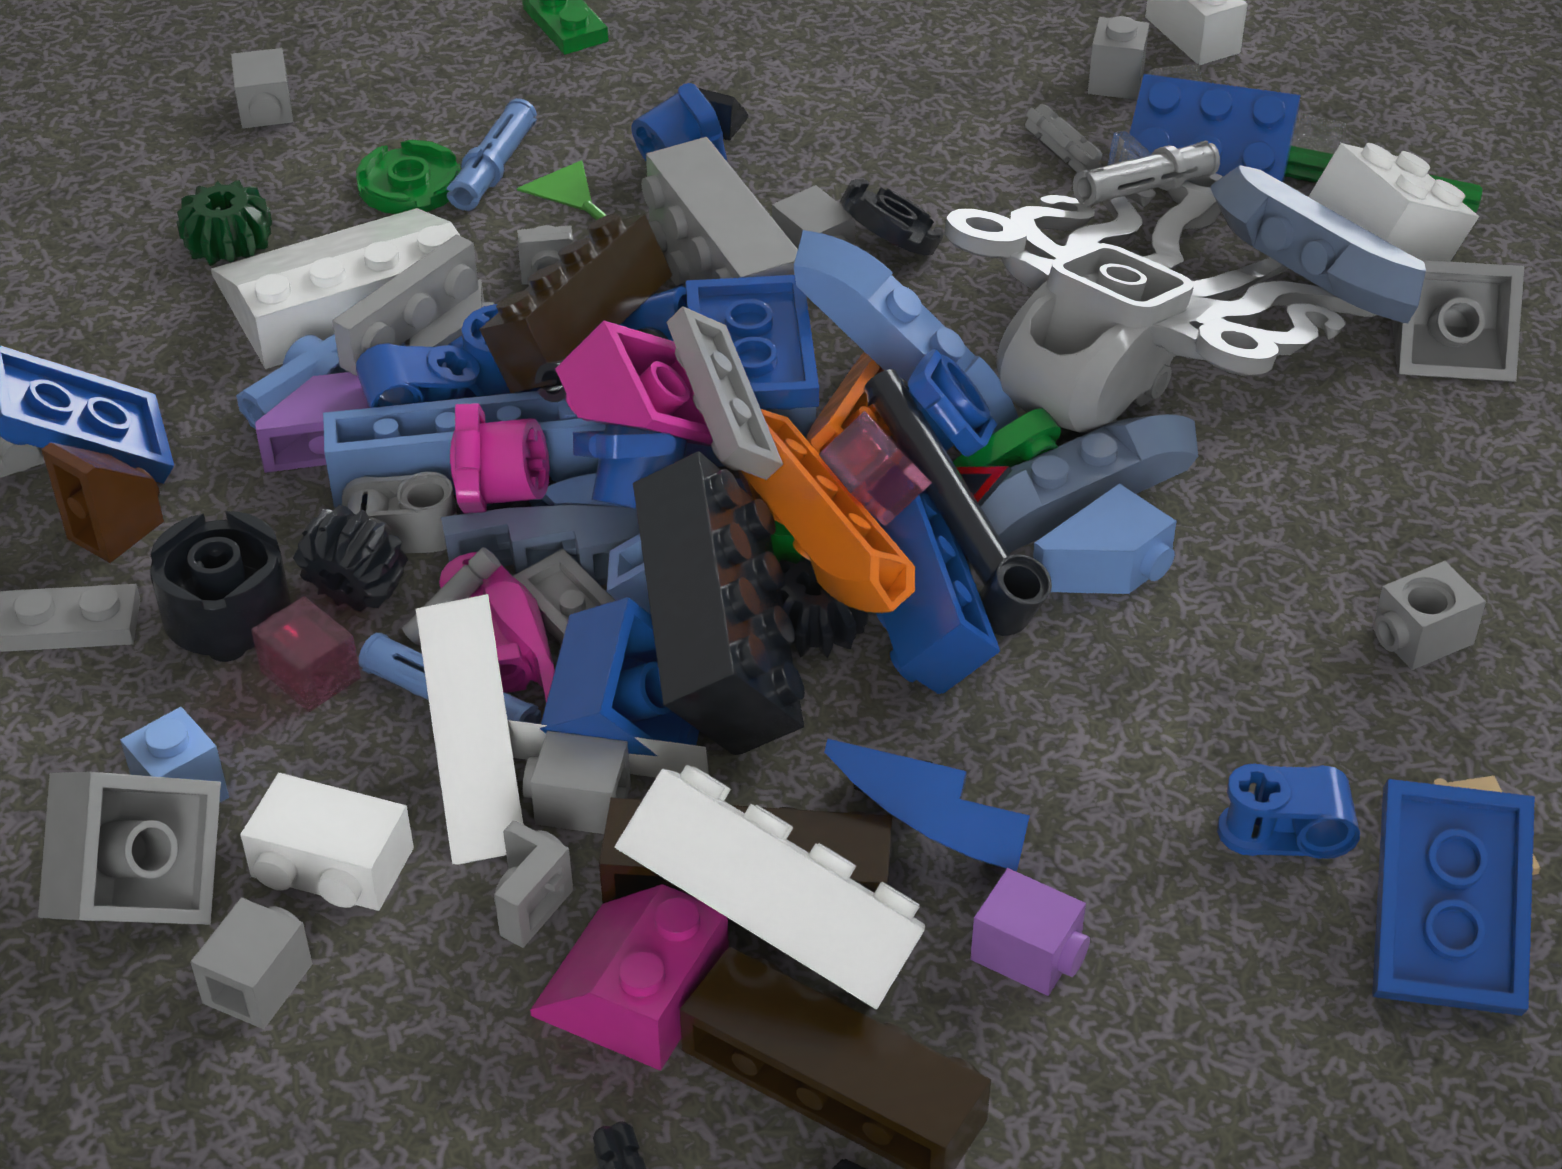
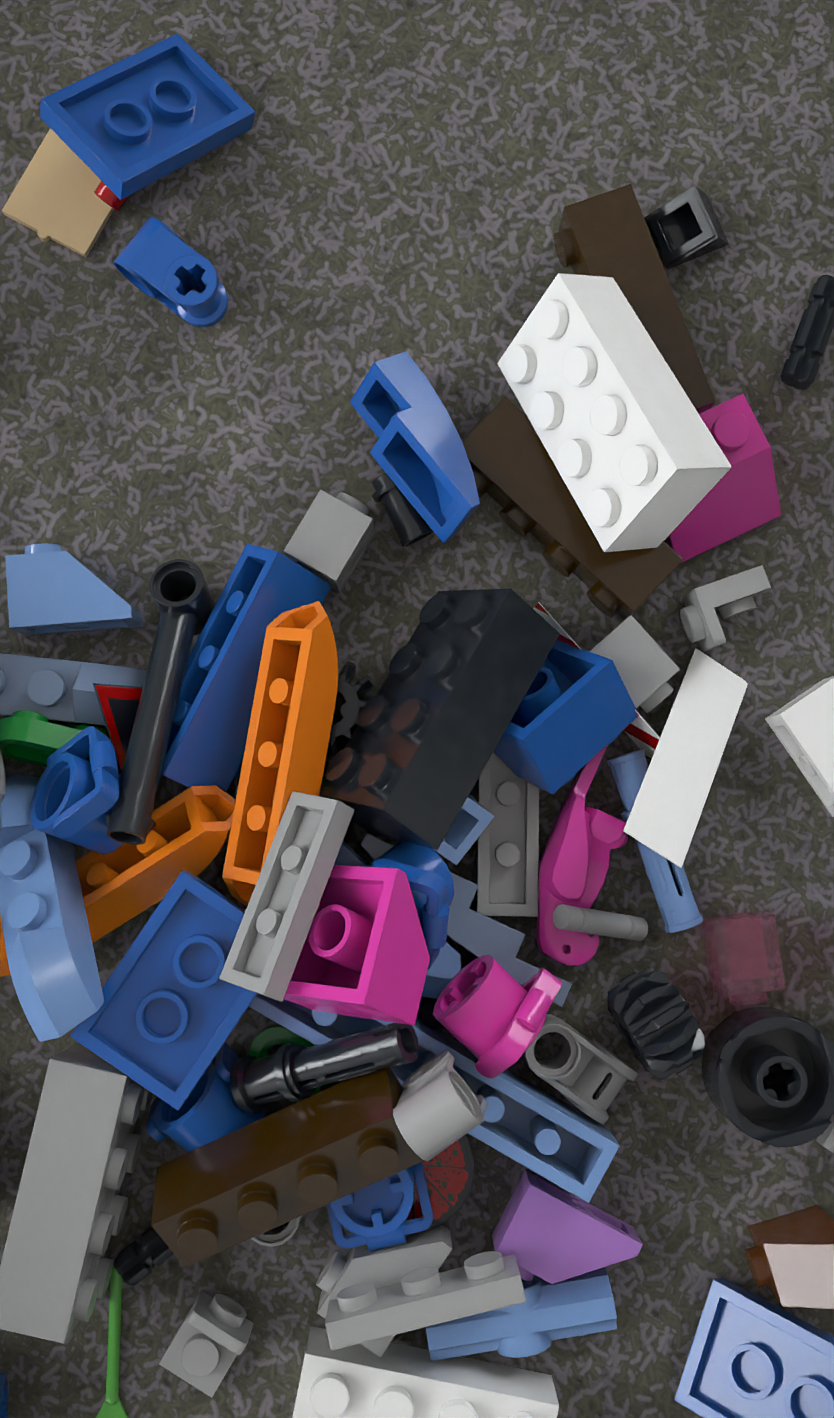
camera: 145 degrees left, 40 degrees up
(415, 374) = (489, 1194): blue piece -> none
(494, 359) = (437, 1107): none -> light grey piece
(874, 468) = (210, 752): clear pink brick -> none
(935, 707) = (332, 538): none -> light grey brick
(1029, 932) = (431, 312): medium lavender brick -> none

